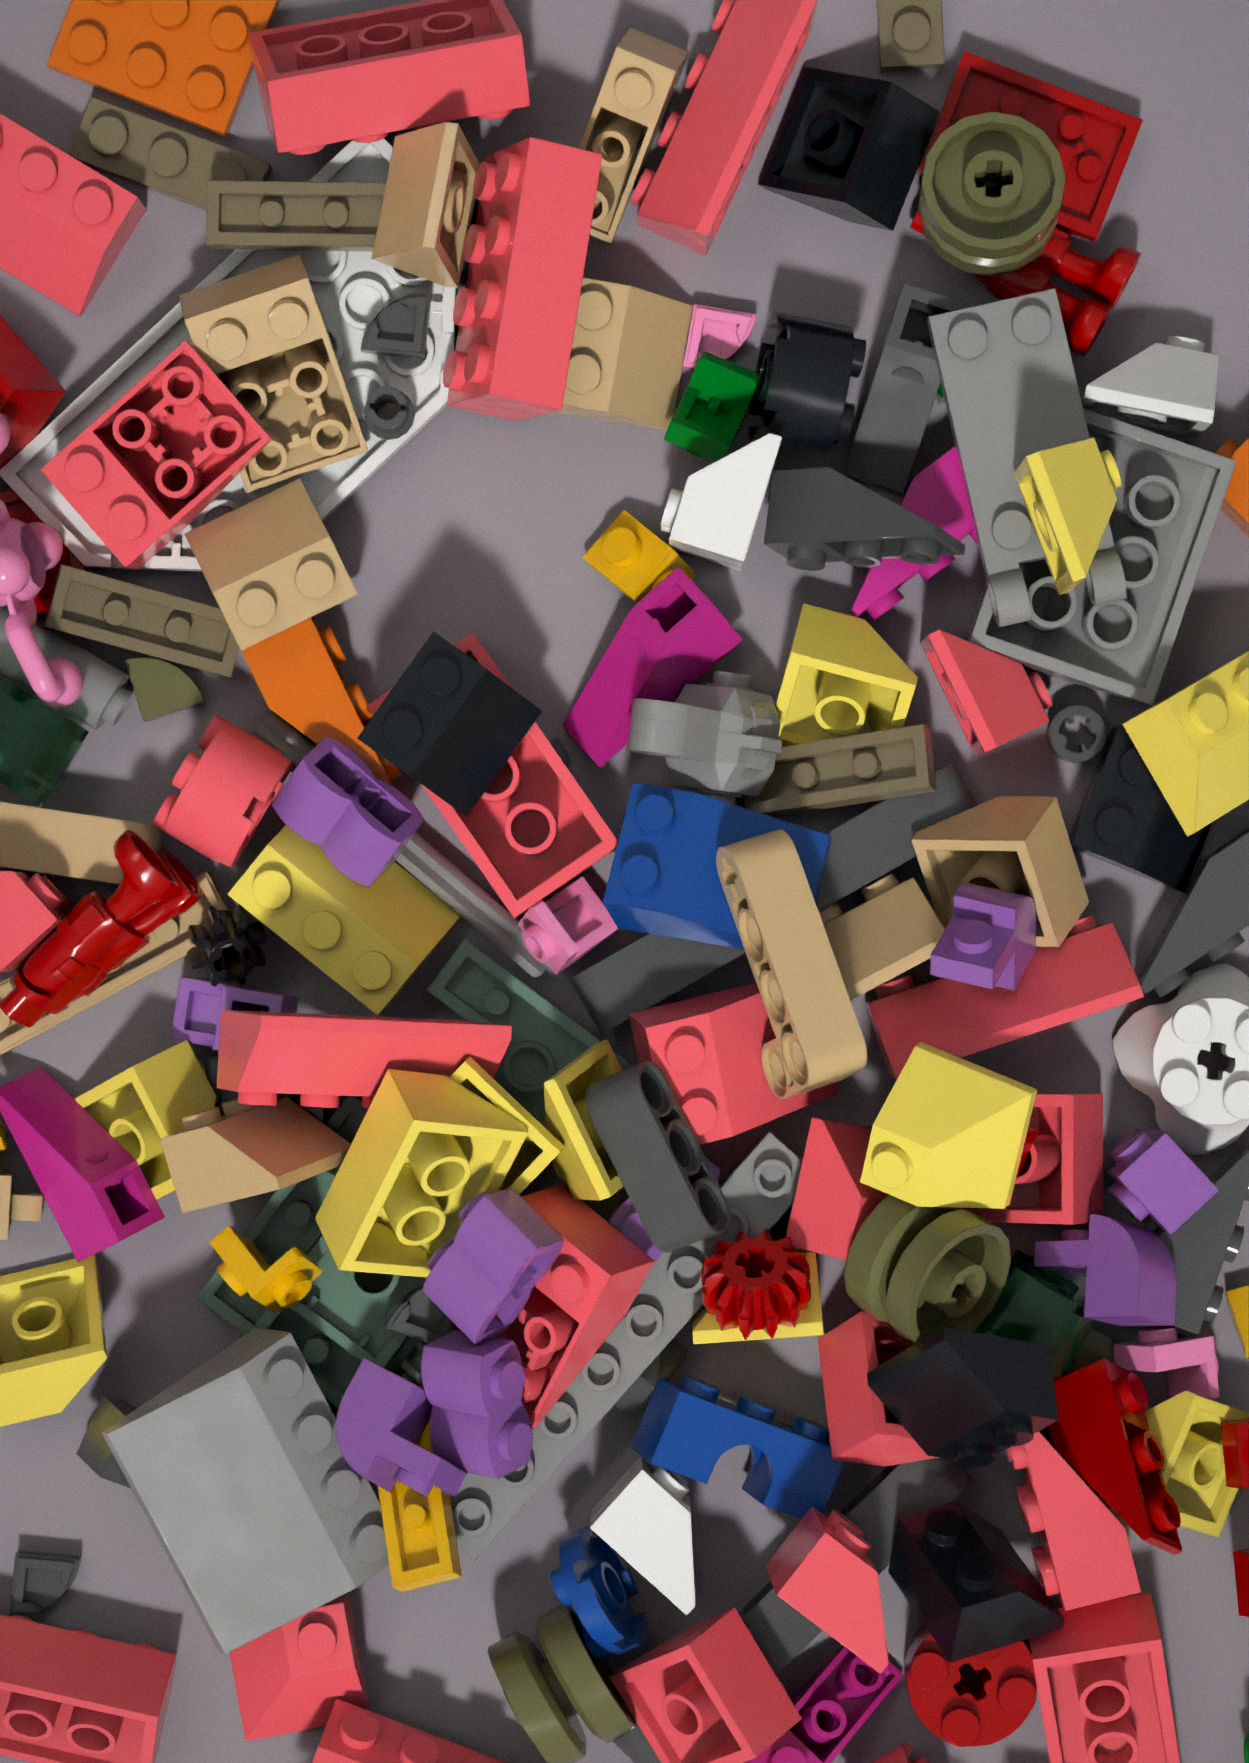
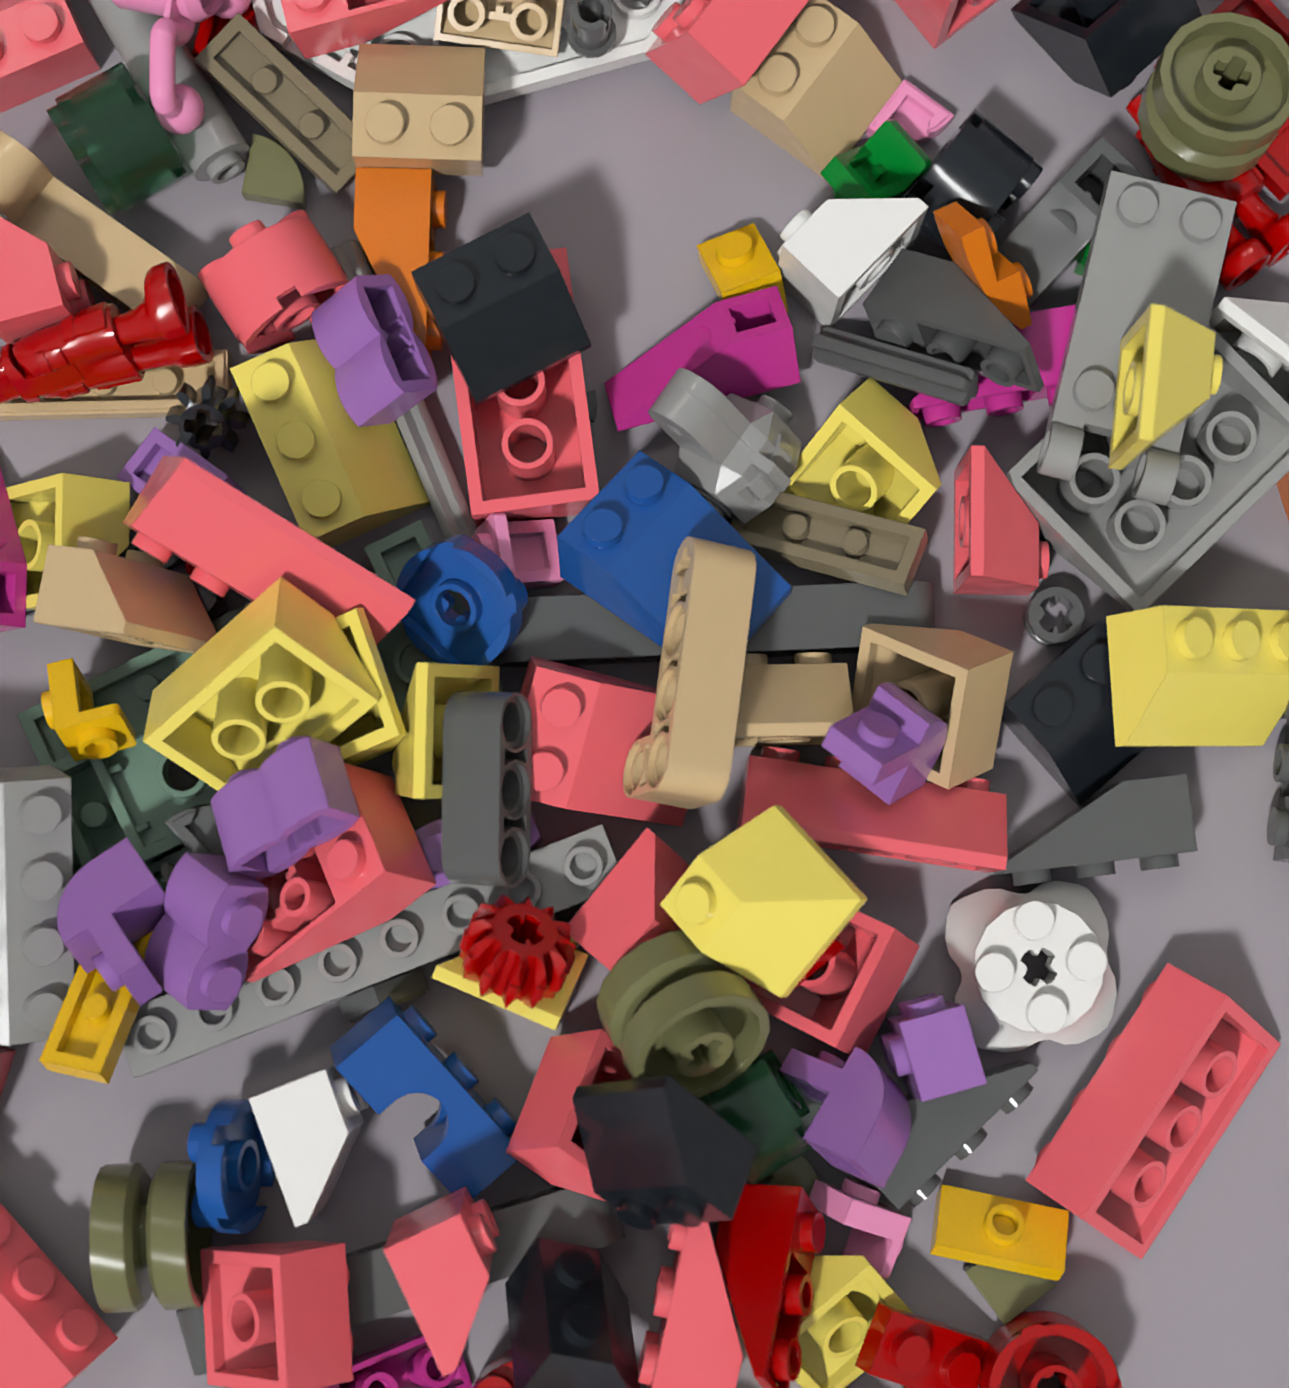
camera: 30 degrees right, 5 degrees down
(550, 971) = (484, 581): none -> blue plate
(820, 585) = (895, 365): none -> dark grey axle
(872, 465) = (976, 253): none -> orange slope

